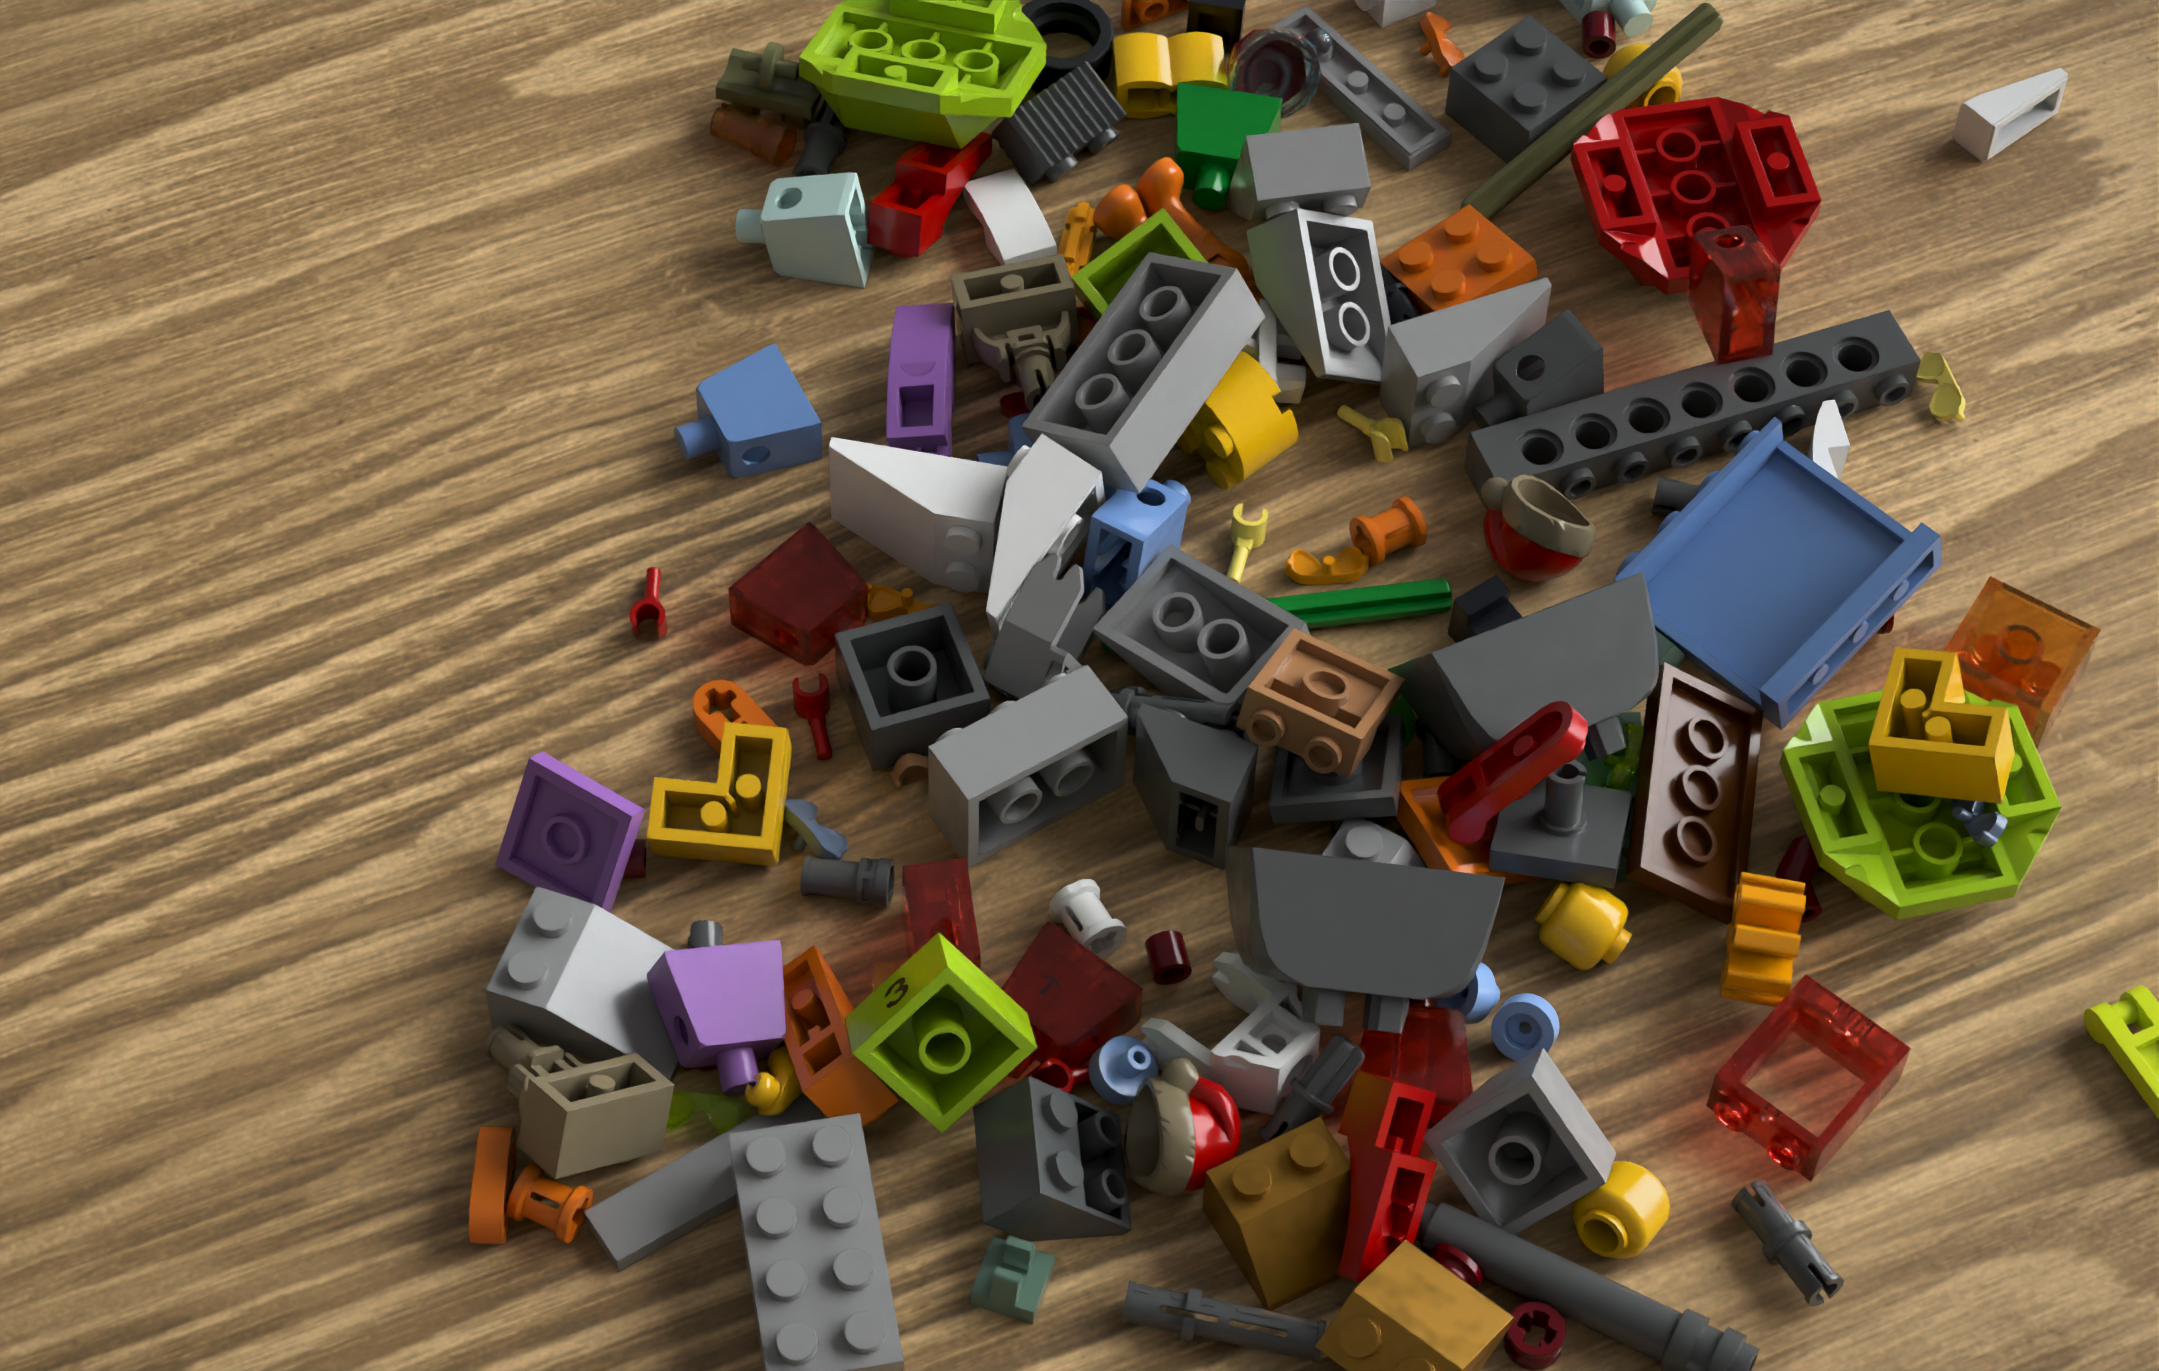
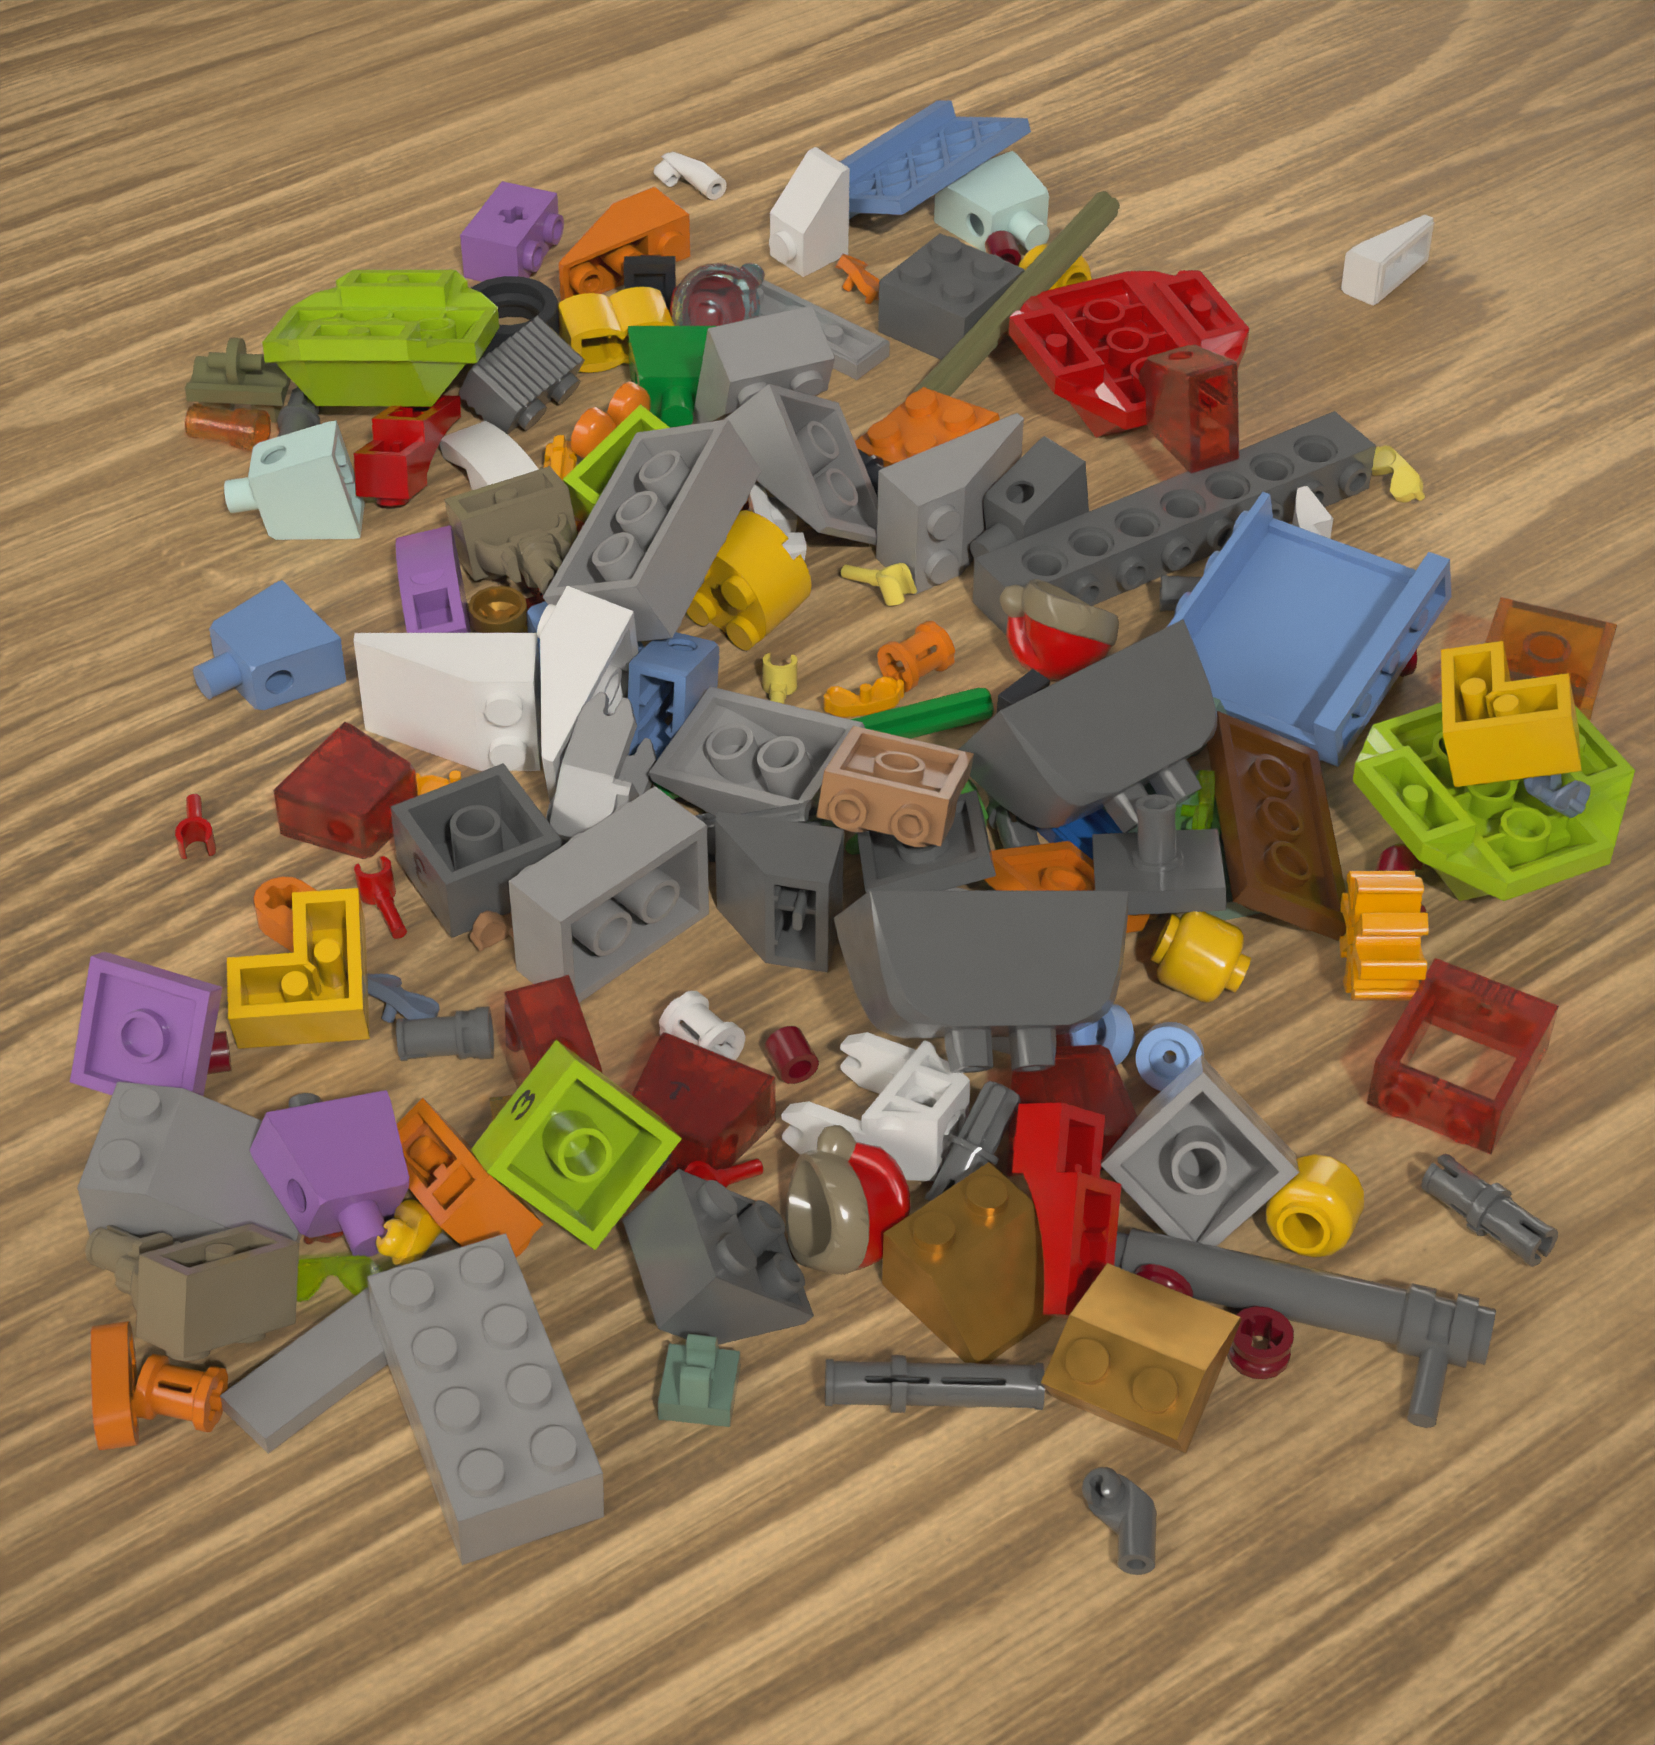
camera: 10 degrees left, 10 degrees down
(980, 422) = (498, 610): none -> pearl gold wheel
(1120, 1068) = (767, 1162): light blue tile -> none
(1510, 769) = (1100, 810): red plate -> none

